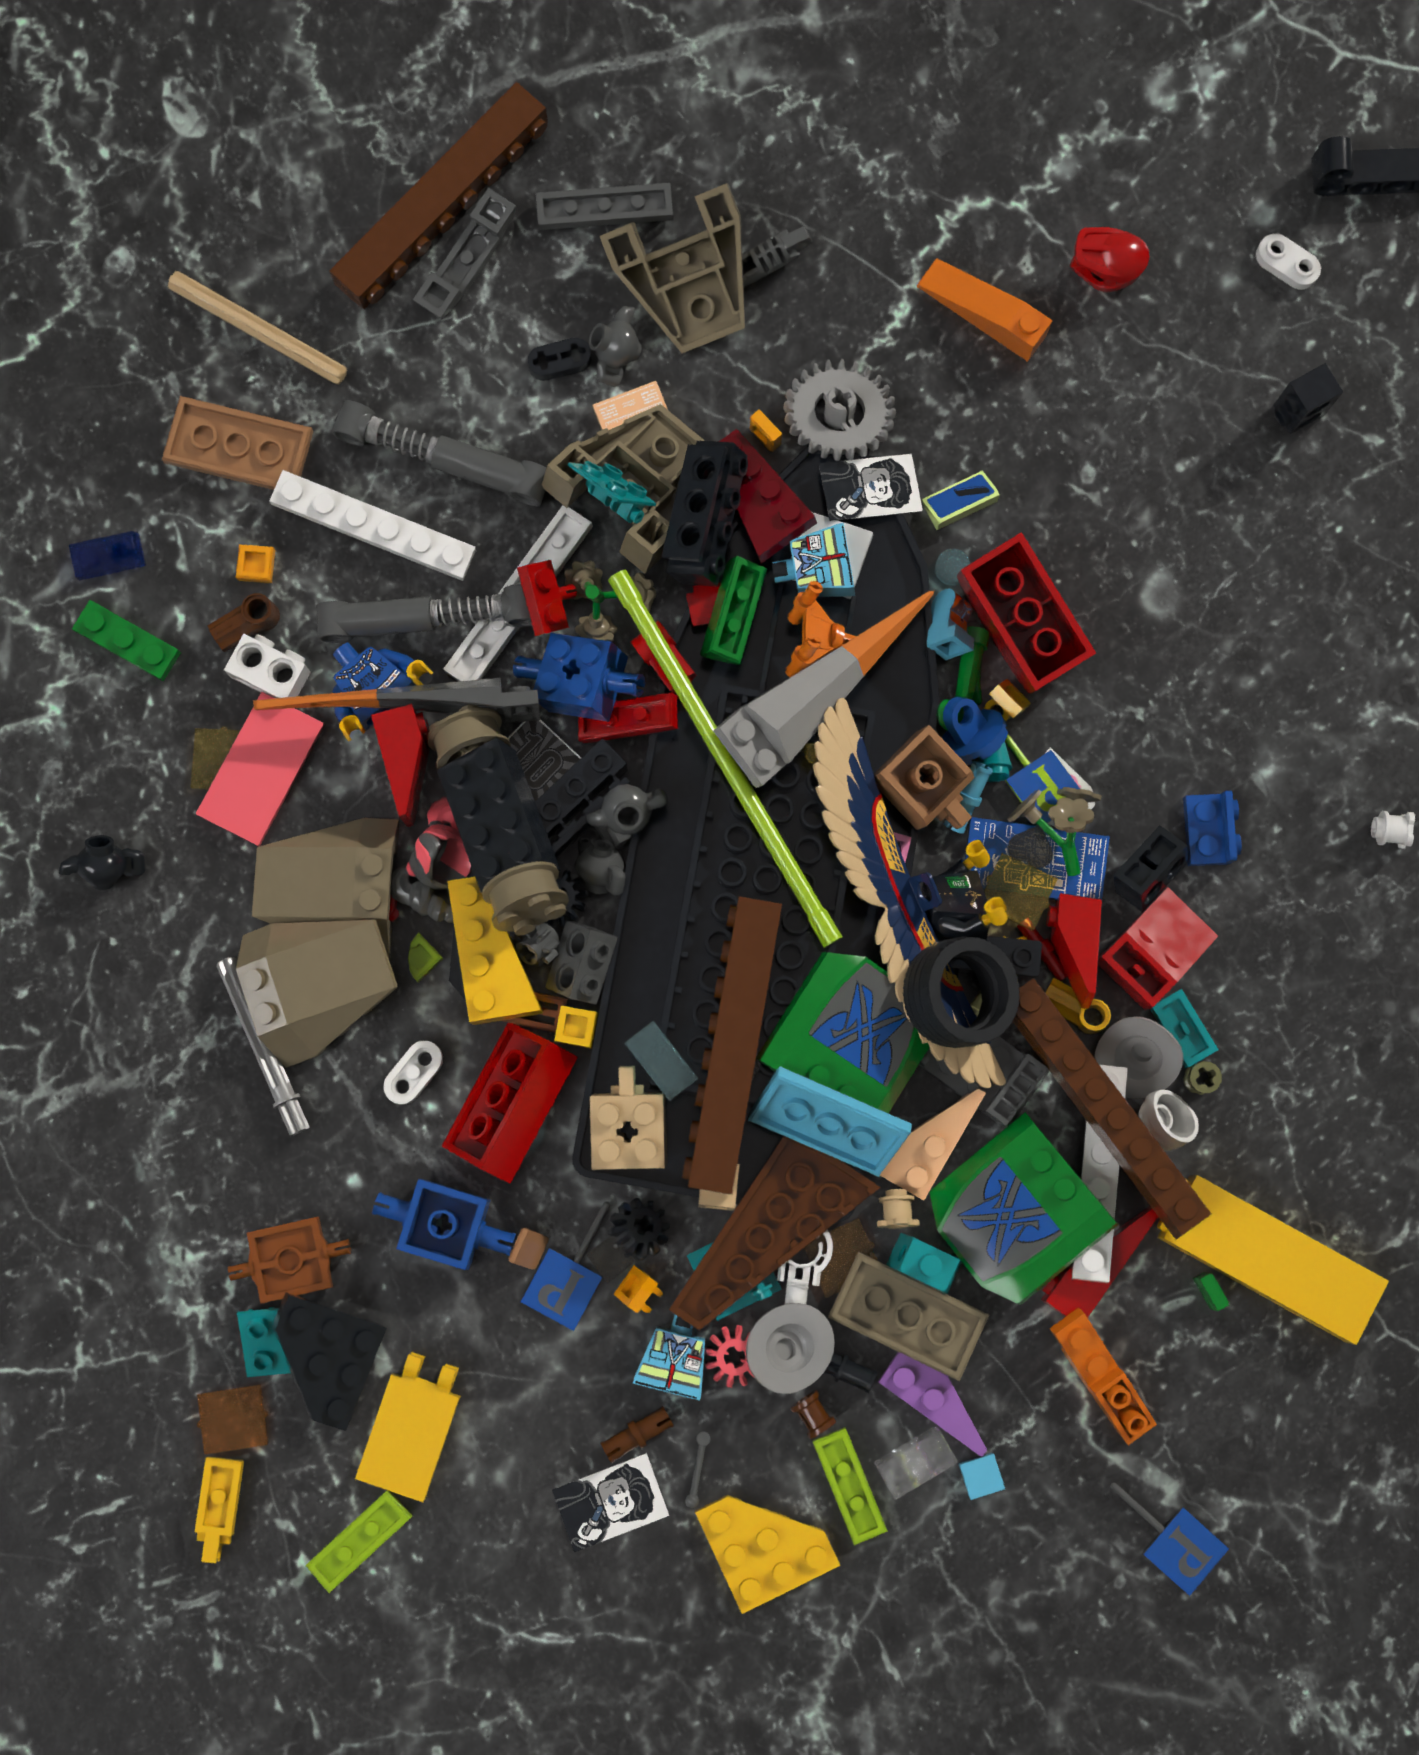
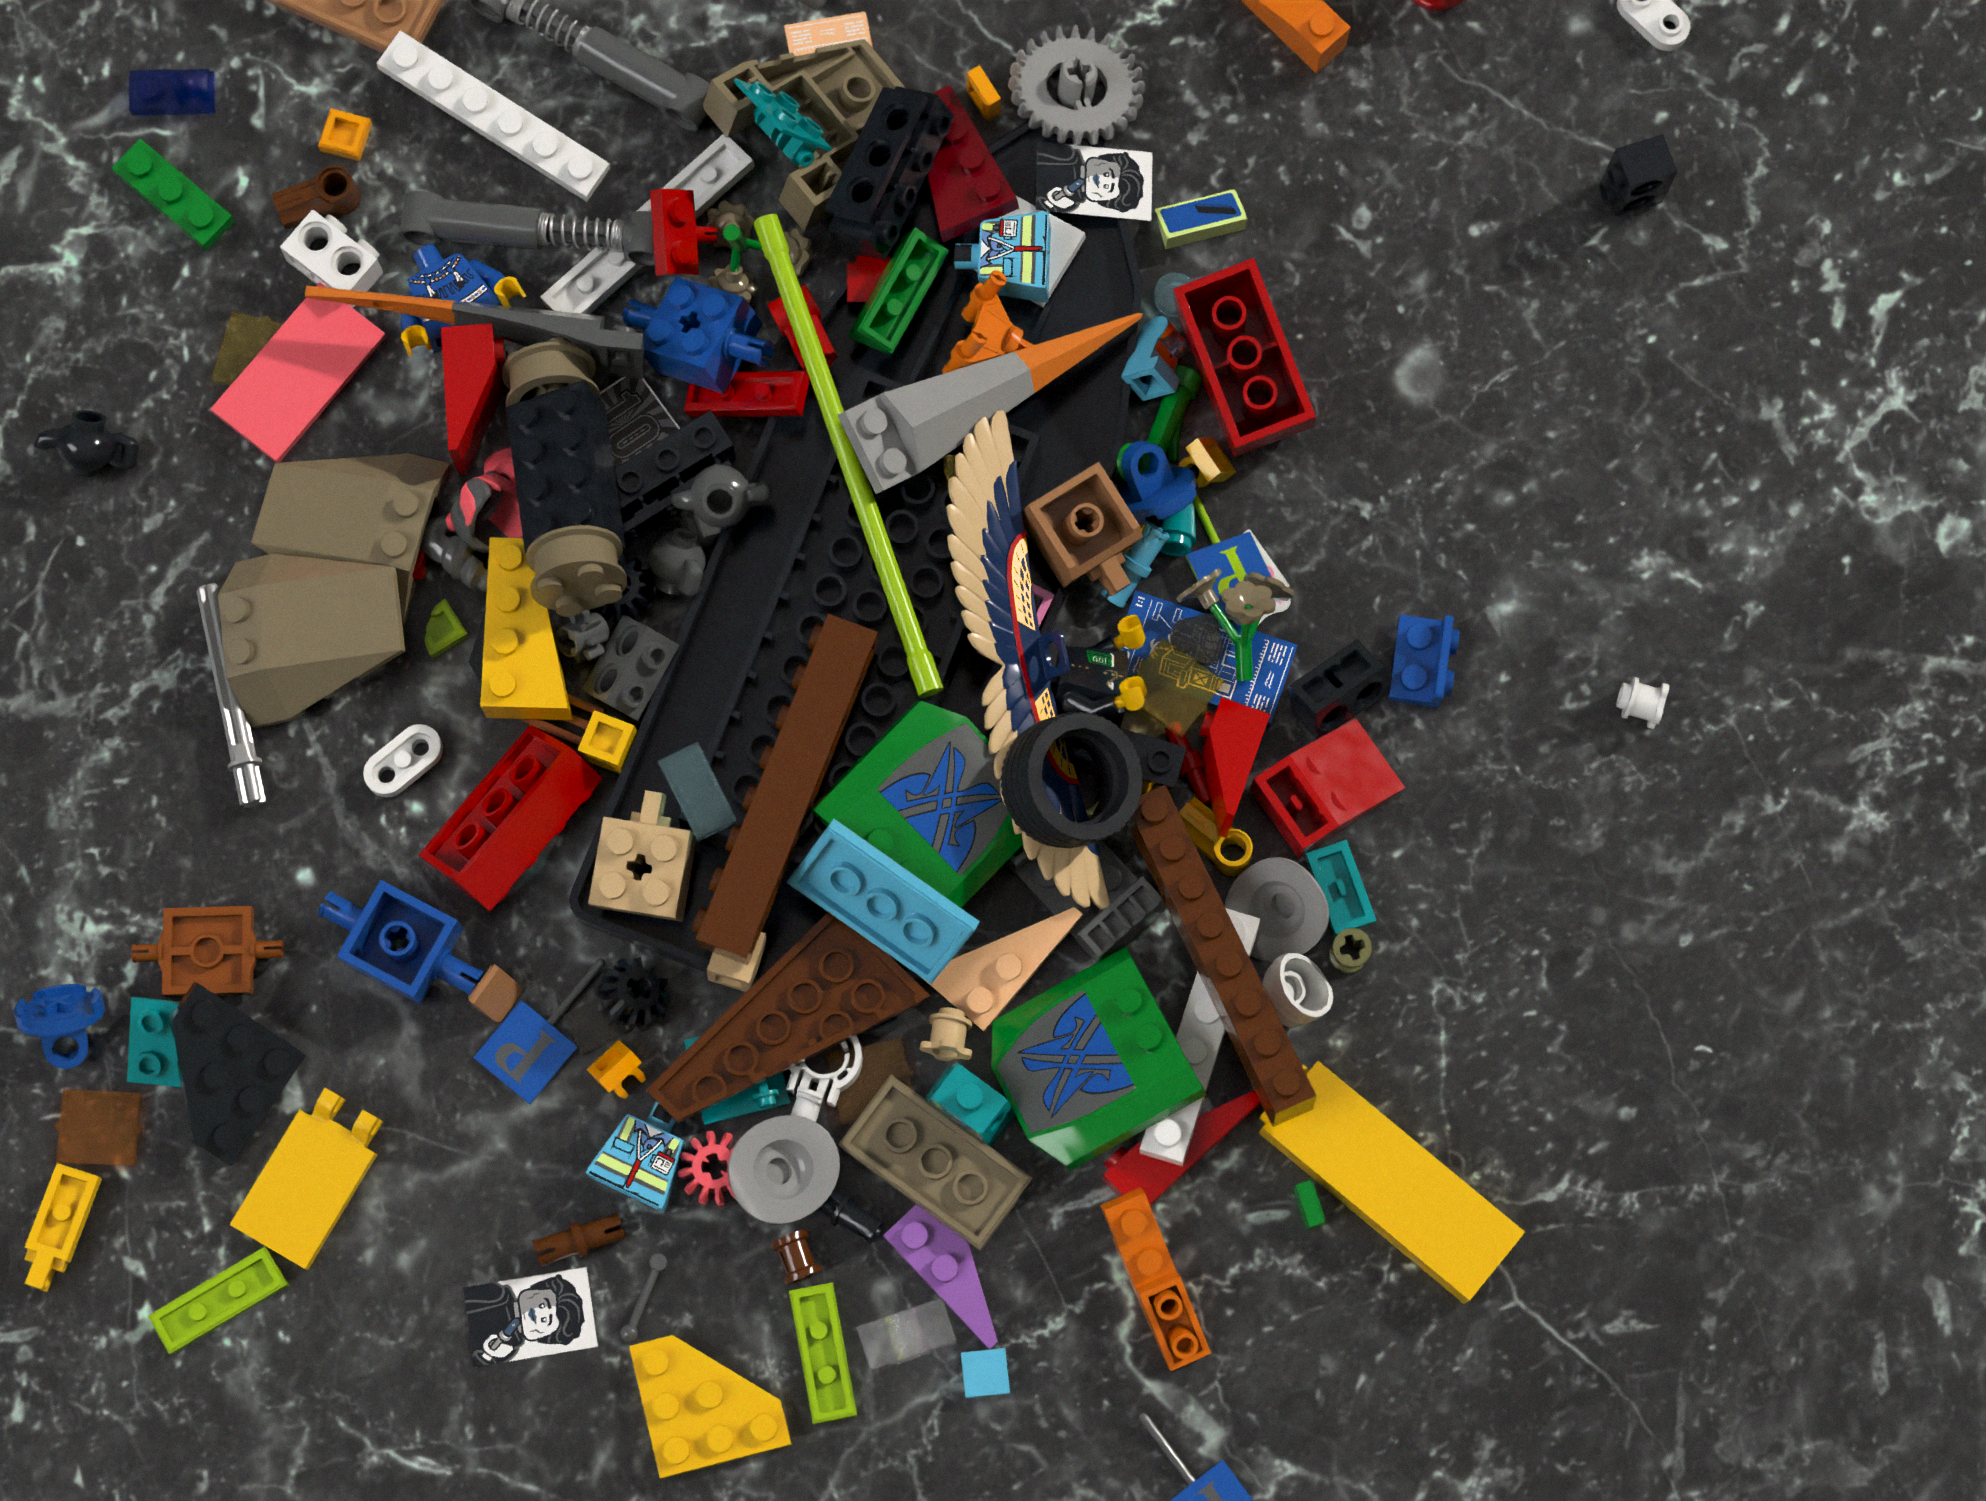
camera: 10 degrees right, 5 degrees down
(182, 1336) = (60, 1013): none -> blue tile

